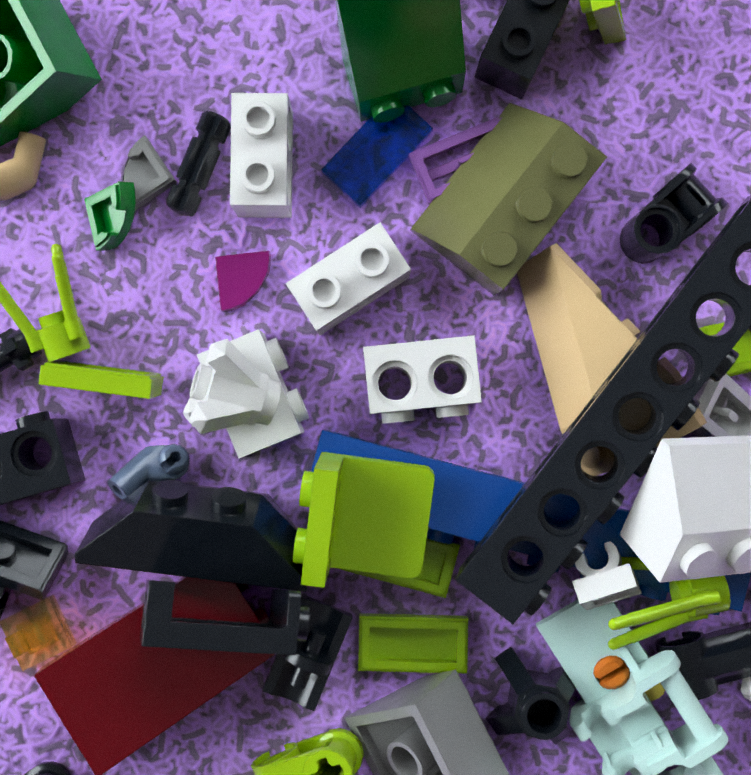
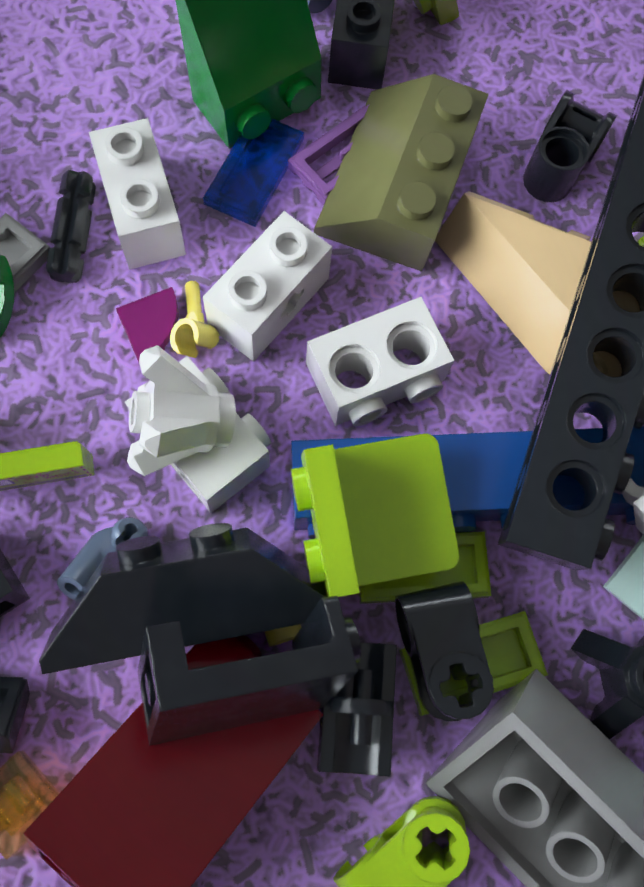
camera: 30 degrees left, 15 degrees down
(277, 301) = (192, 329): none -> light yellow hand
(388, 626) = (441, 639): none -> black piece

